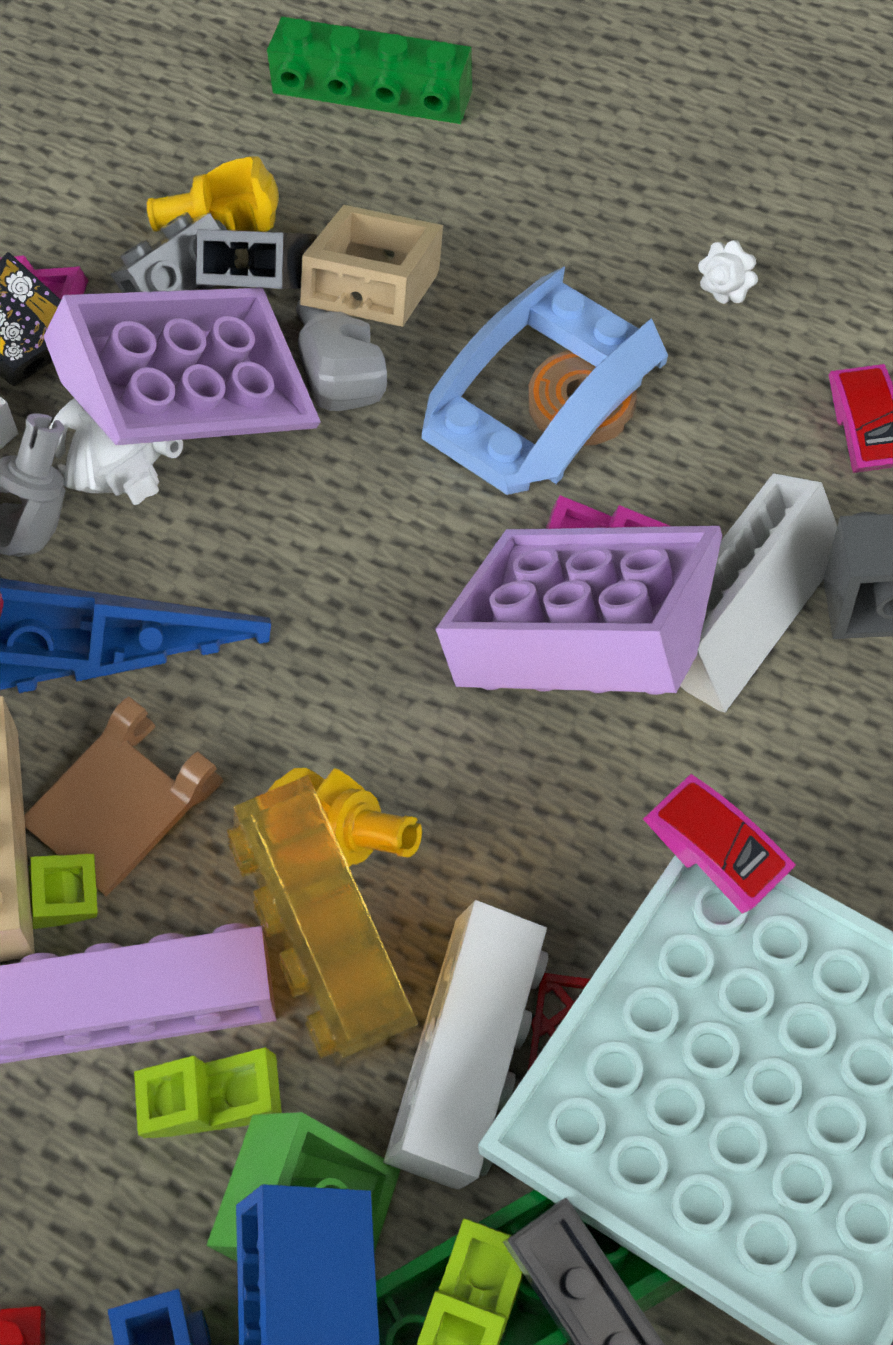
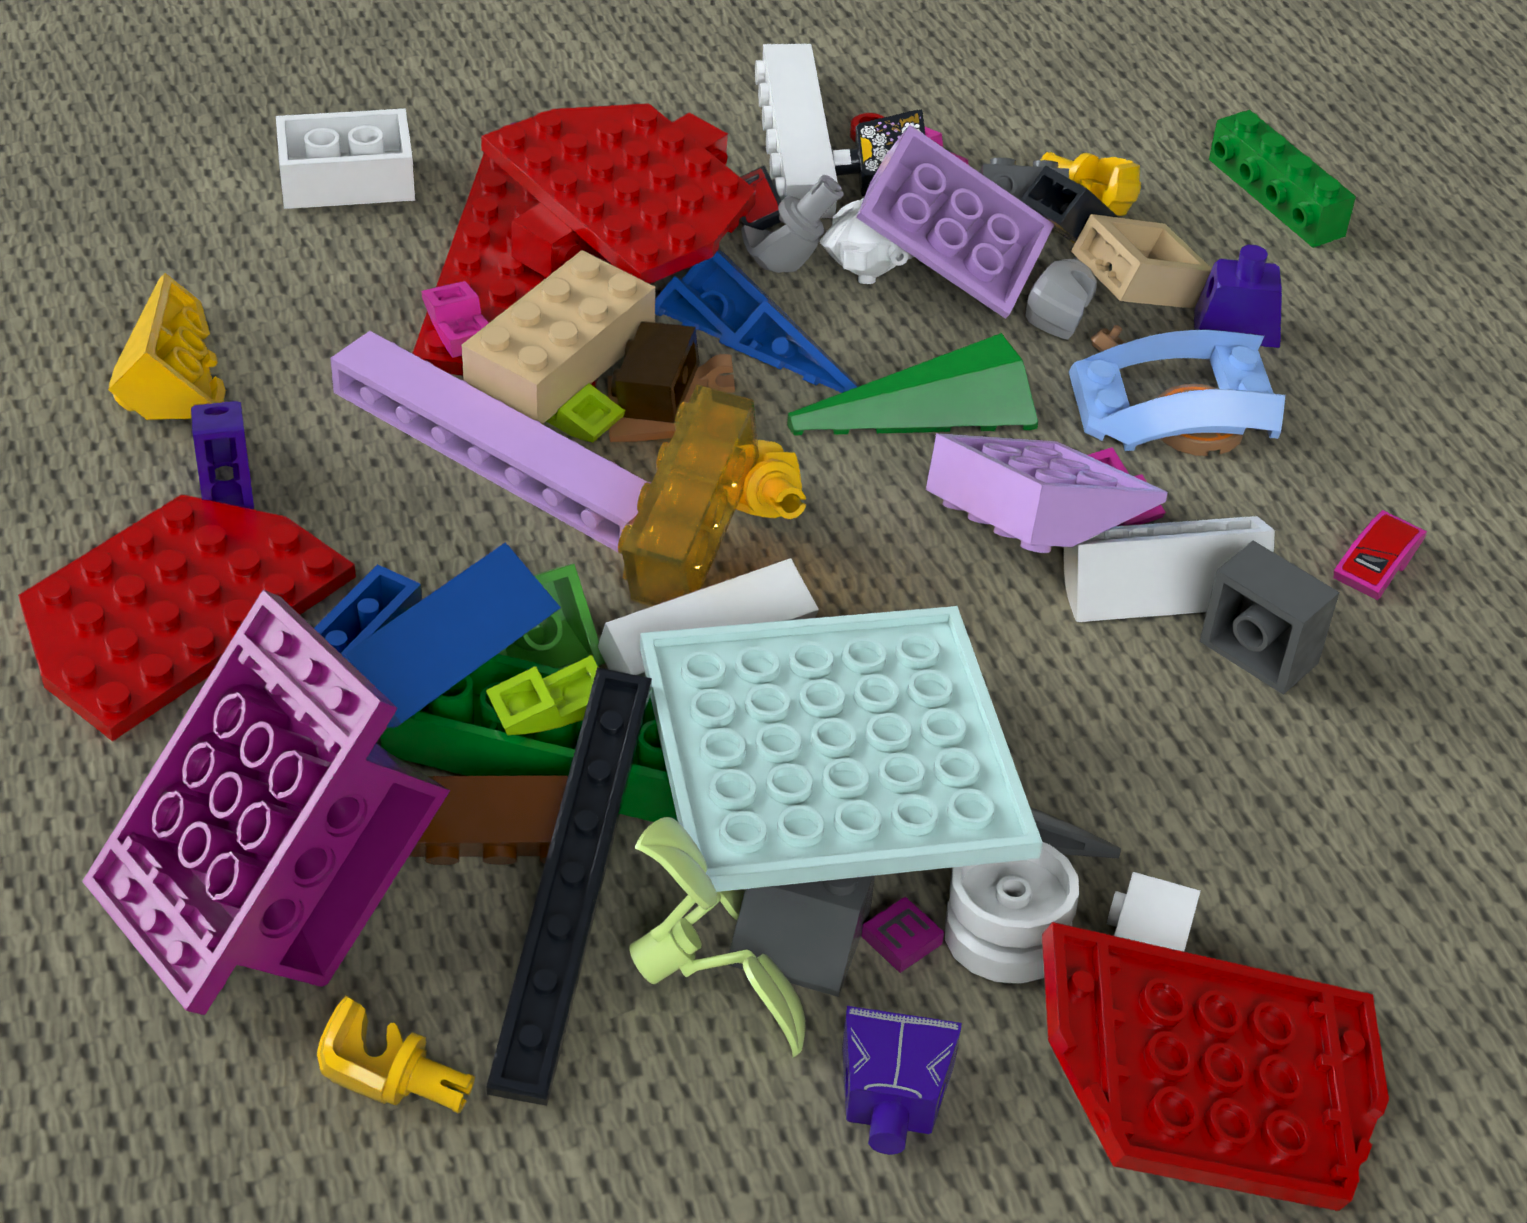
camera: 40 degrees right, 15 degrees down
(83, 783) = (656, 371): none -> dark brown brick
(208, 1096) = (543, 547): lime slope -> none
(370, 544) = (965, 387): none -> green wedge
(419, 374) = (1107, 339): none -> medium nougat rock
(496, 241) = (1243, 297): none -> dark purple torso
(721, 840) = (952, 613): slope -> none
(728, 272) = (1384, 421): white plant -> none

